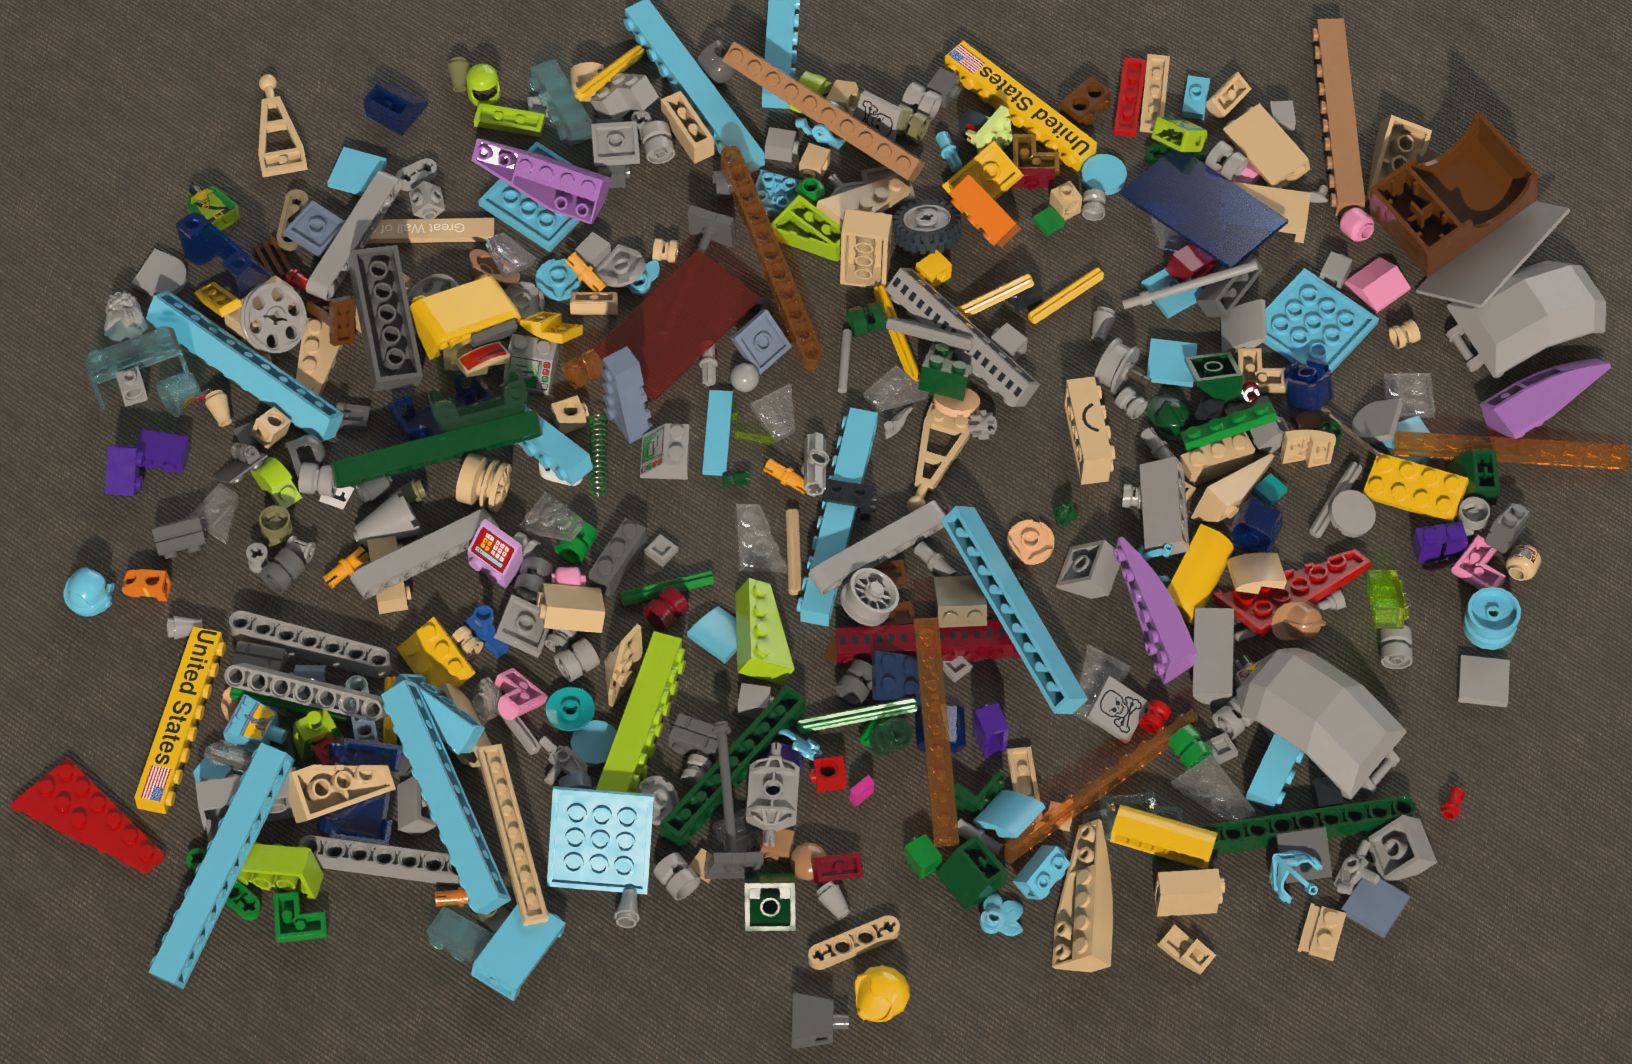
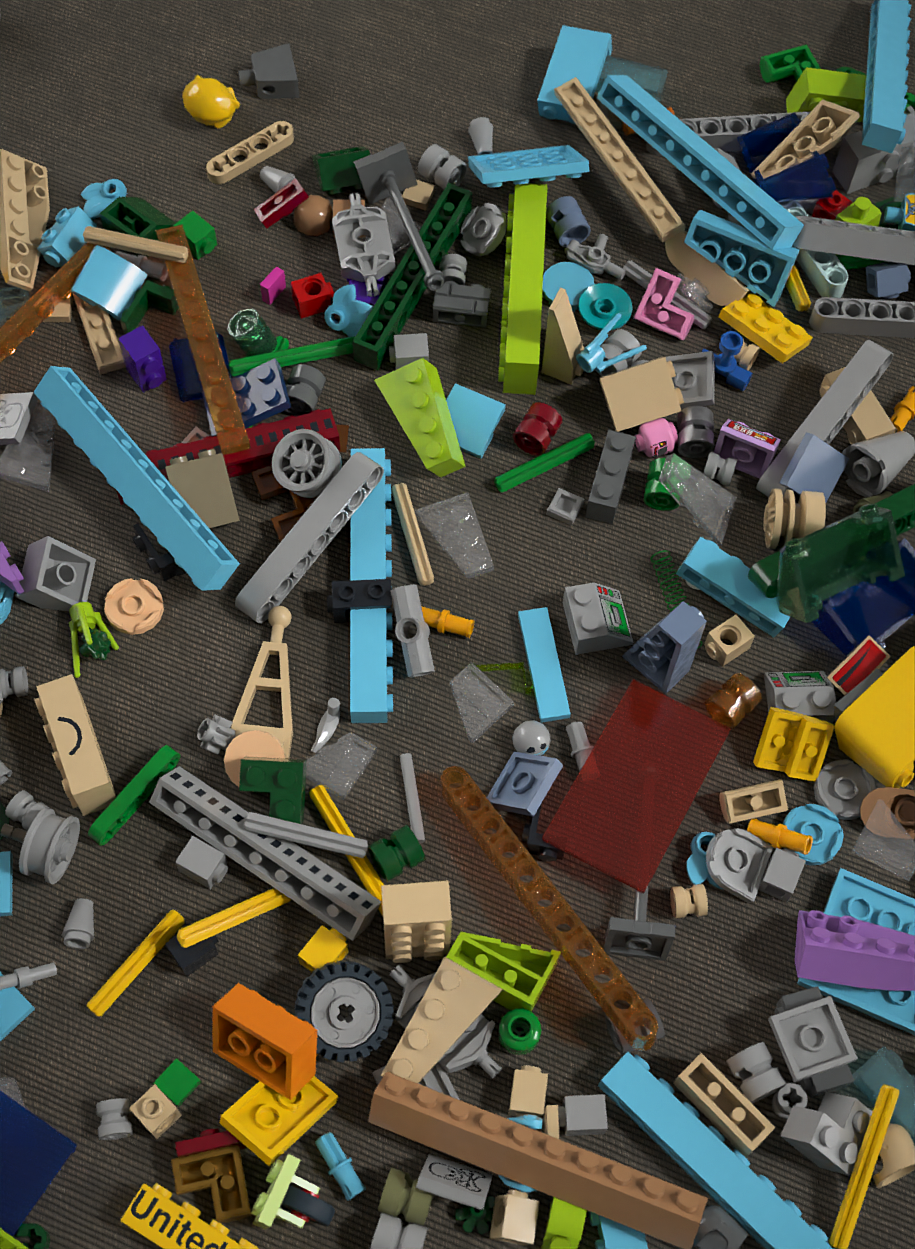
camera: 165 degrees right, 5 degrees up
(451, 515) = (814, 467): none -> sand blue tile
(601, 641) = (593, 354): none -> medium azure plant
(738, 478) = (501, 608): dark green piece -> none
(775, 191) = (569, 1035): medium azure tile -> none
(805, 139) = (551, 1121): none -> tan tile
(934, 560) = (241, 550): light grey pin -> none
(980, 822) = (135, 244): none -> tan axle
(1044, 403) = (133, 796): none -> green beam
(1071, 534) = (83, 618): none -> lime plant
(1104, 173) = (106, 1185): medium azure tile -> none

